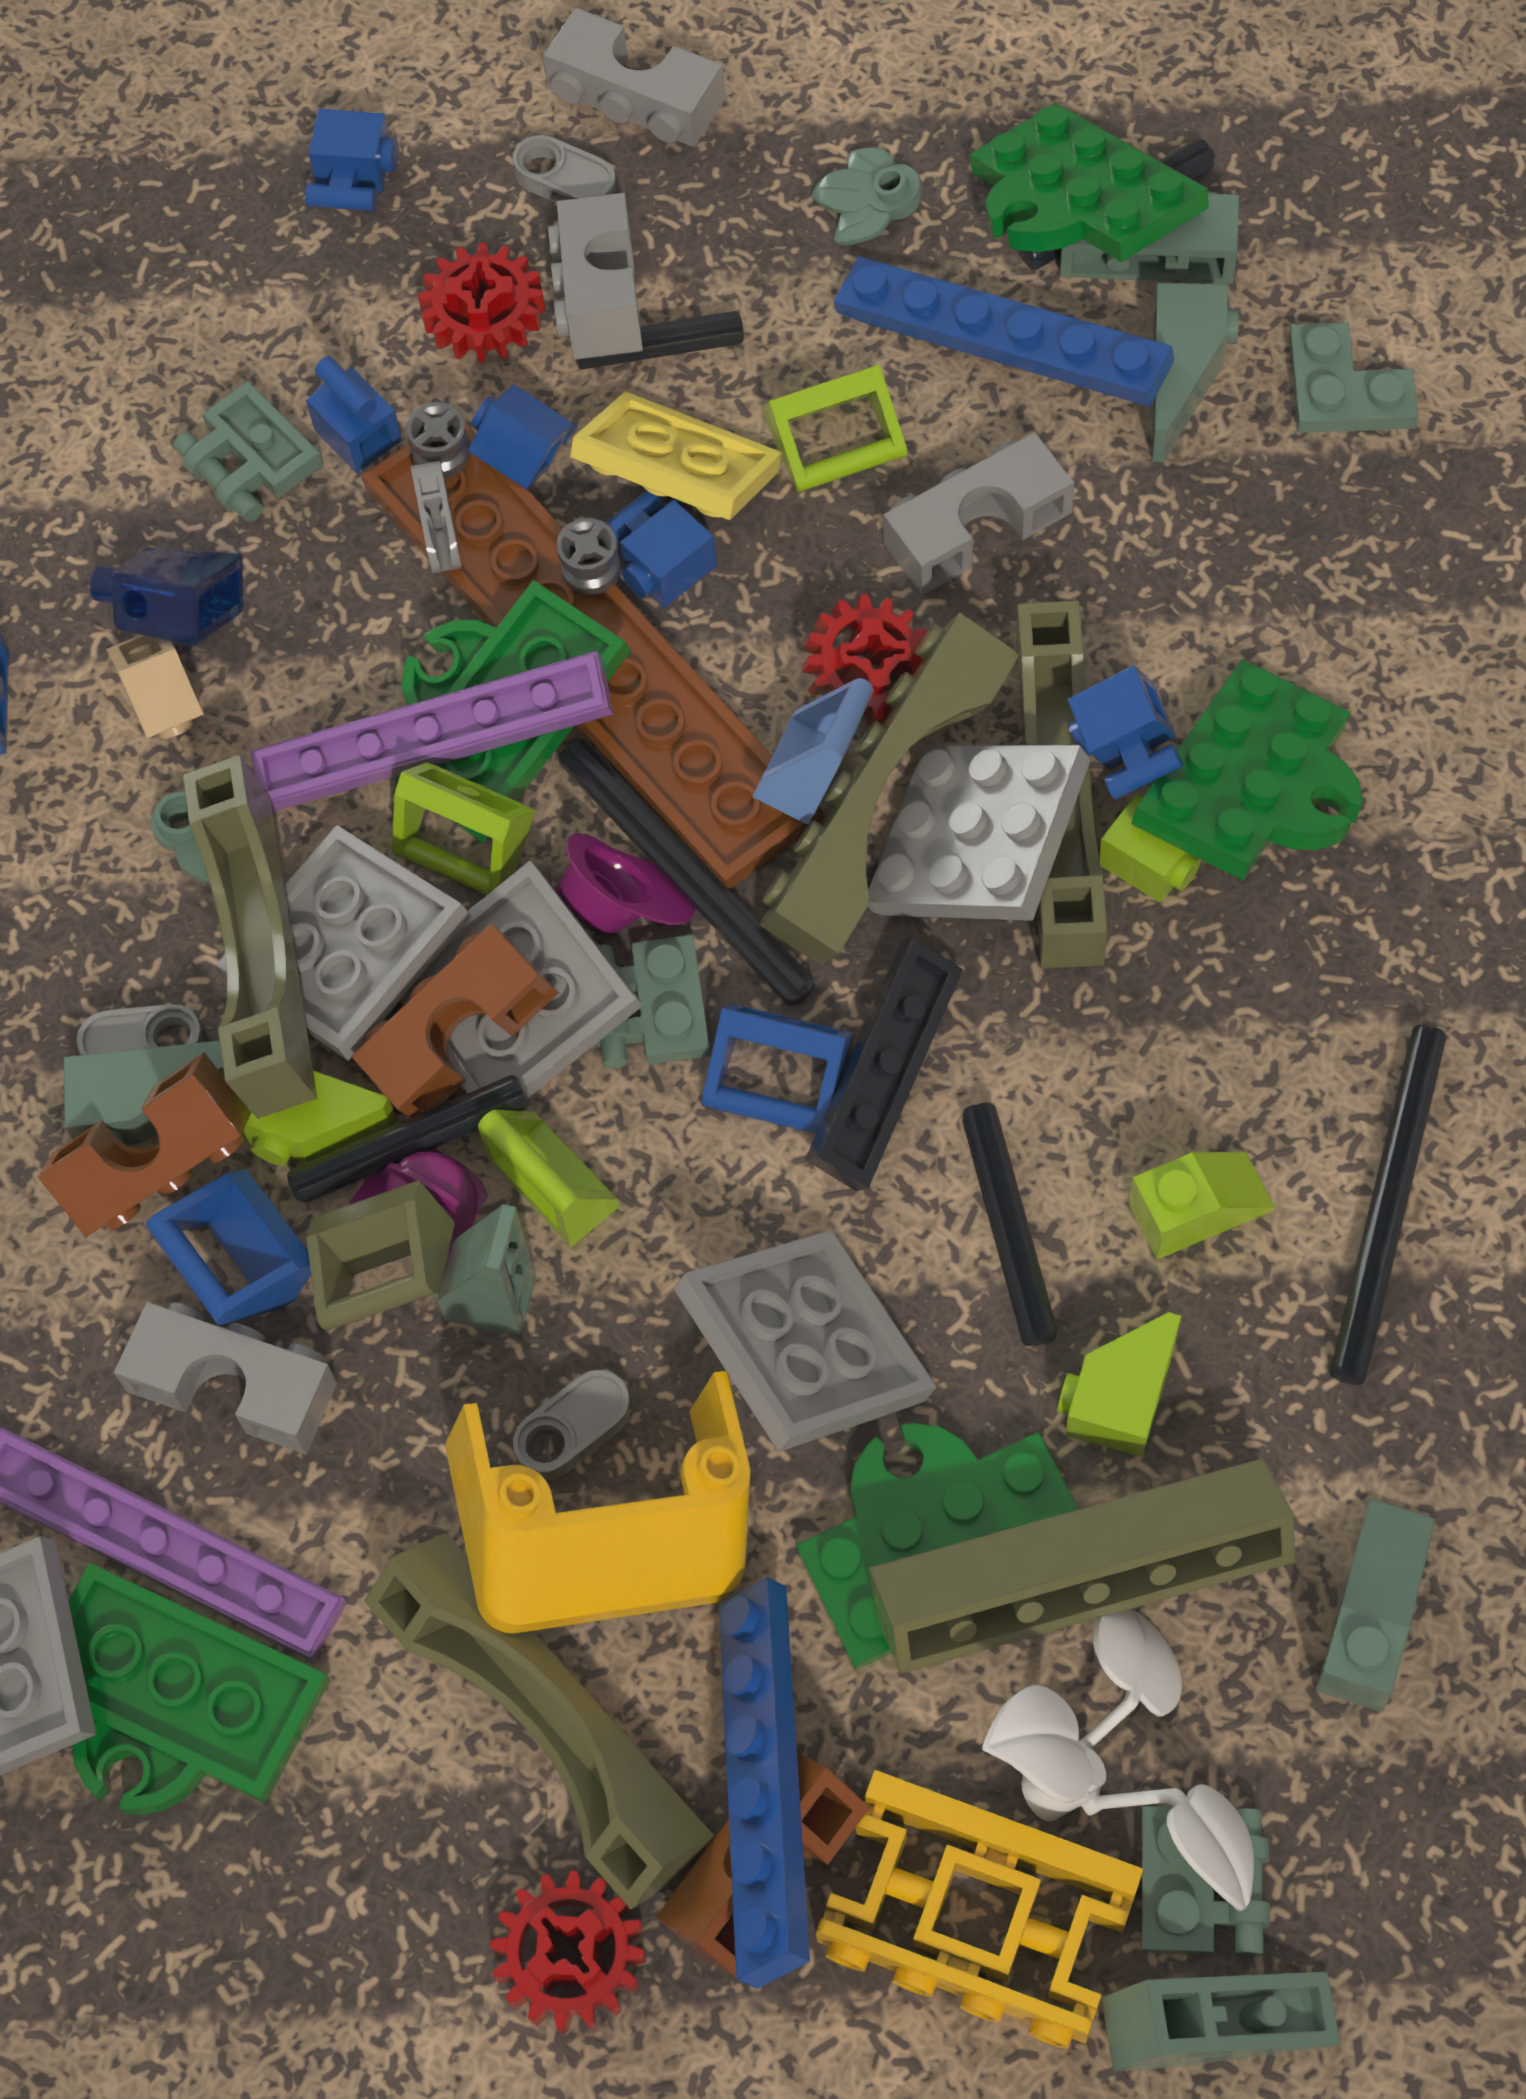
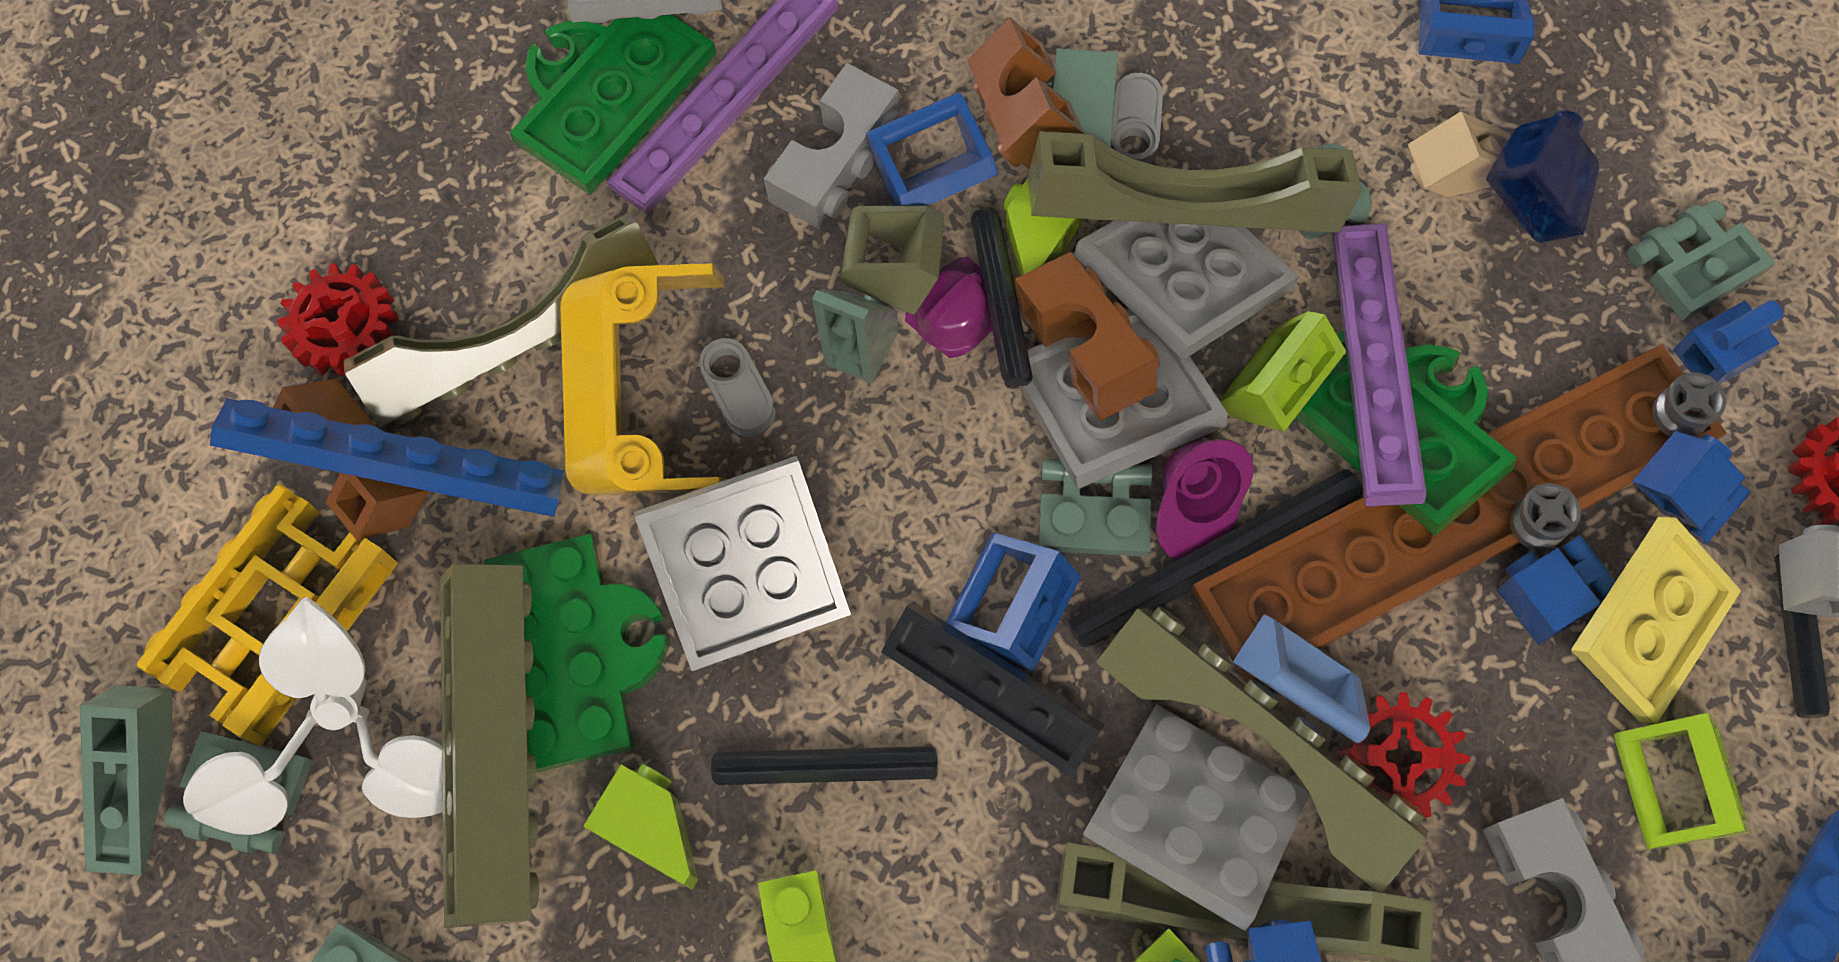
camera: 100 degrees right, 5 degrees up
(436, 517) = (1602, 391): light grey piece -> none
(546, 1172) = (948, 394): lime tile -> none

